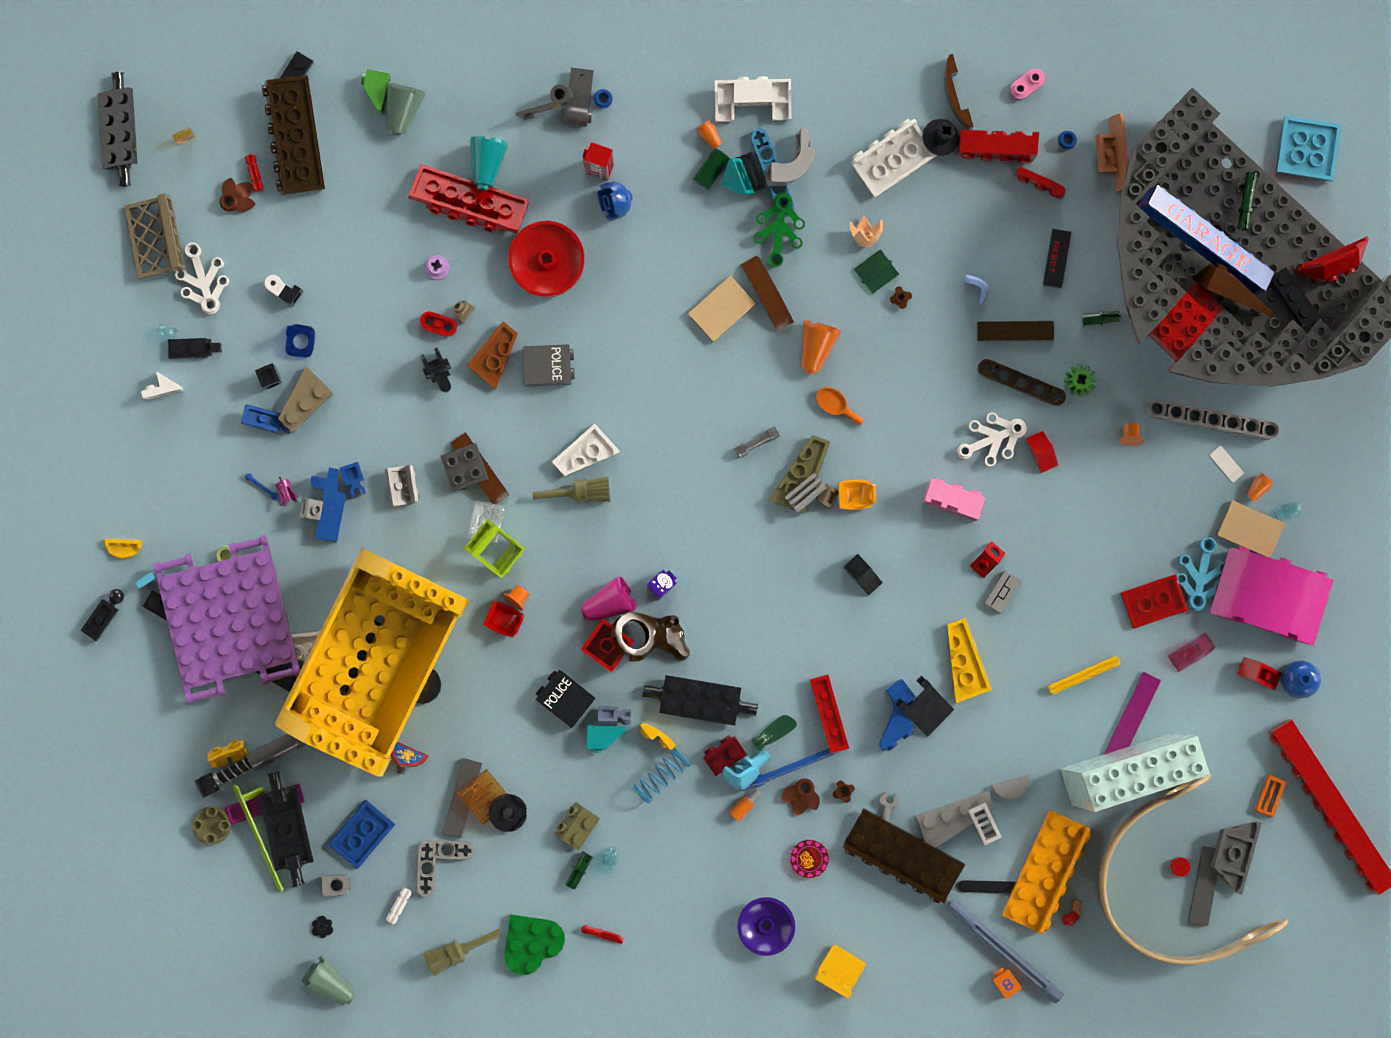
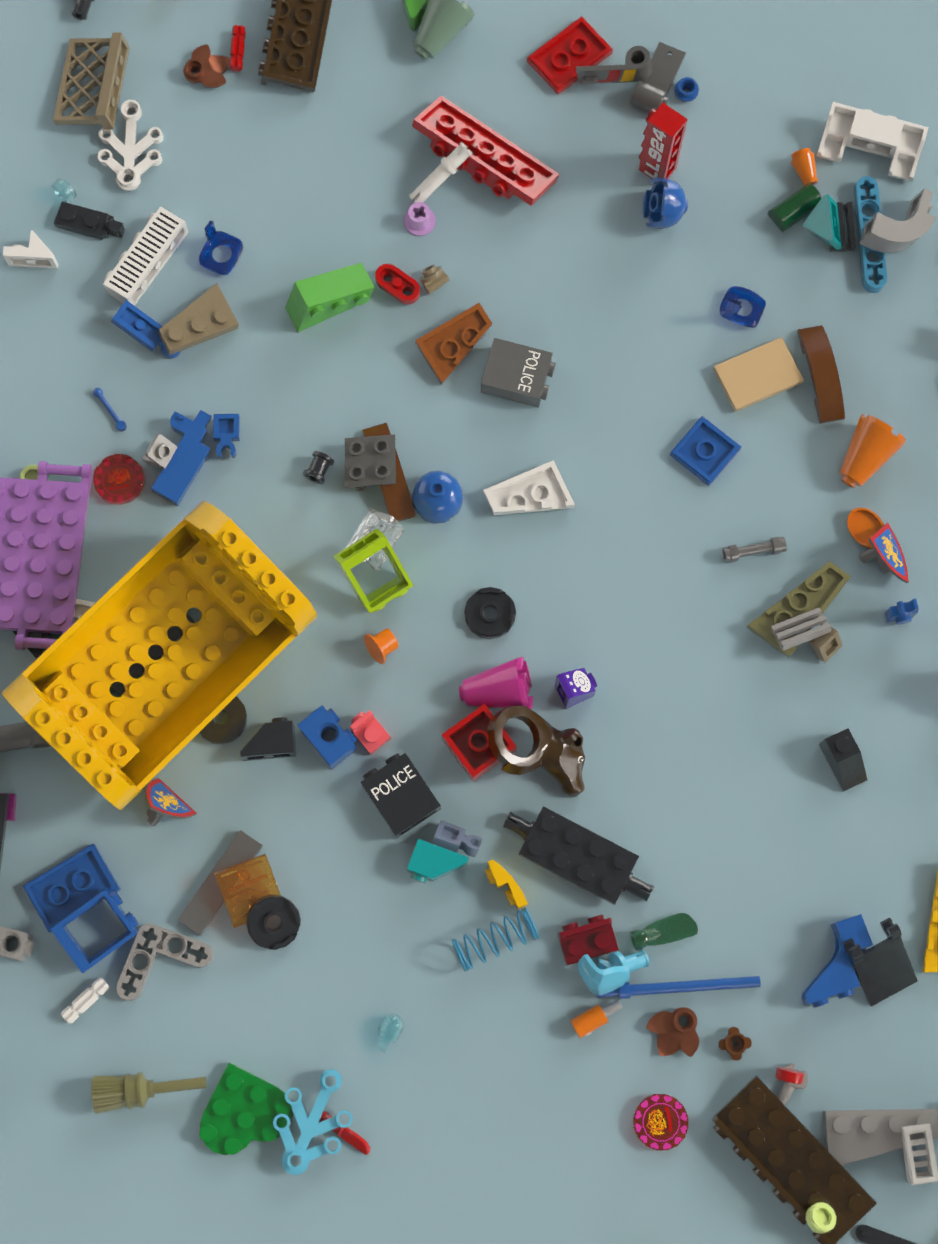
camera: 25 degrees right, 10 degrees down
(247, 360) = (145, 256): none -> white brick
(268, 376) = (166, 278): black brick -> none
(278, 288) = (226, 194): leg -> none
(285, 489) = (136, 416): flat silver piece -> none
(287, 536) = (118, 479): none -> clear red tile
(389, 881) = (72, 946): none -> blue window
(392, 350) = (328, 295): none -> bright green wedge
(402, 485) = (283, 460): light grey bracket -> none
(428, 482) = (318, 467): none -> black bush
(438, 371) = (377, 336): black hinge -> none
(446, 224) = (441, 173): none -> white pin
(464, 689) = (271, 741): none -> black slope
(486, 160) = (523, 108): teal cone -> none
(490, 670) = (333, 751): none -> blue brick
(503, 619) = (354, 666): red piece -> none
(506, 97) = (571, 48): none -> red tile
(520, 476) = (437, 497): none -> blue cylinder
(529, 661) = (369, 731): none -> coral bracket
(546, 259) = (557, 246): red dish -> none
(576, 826) = (359, 971): olive bracket -> none
(579, 870) = (341, 1032): dark green axle -> none
(579, 938) = (310, 1127): none -> medium azure plant
(581, 491) = (509, 538): olive piece -> none
(585, 560) = (486, 627): none -> black tile
(684, 266) = (731, 306): none -> clear blue piece
(701, 379) = (705, 450): none -> blue tile
(770, 940) = (577, 1219): dark purple dish -> none
(779, 226) = (862, 297): green plant -> none
(829, 714) = (747, 931): red plate -> none
(851, 416) = (887, 553): none -> shield
(856, 494) = (867, 654): light orange piece -> none
(873, 457) = (902, 612): none -> blue plate
(884, 801) = (789, 1075): none -> red tile
(930, 886) = (820, 1218): none -> yellowish green tile

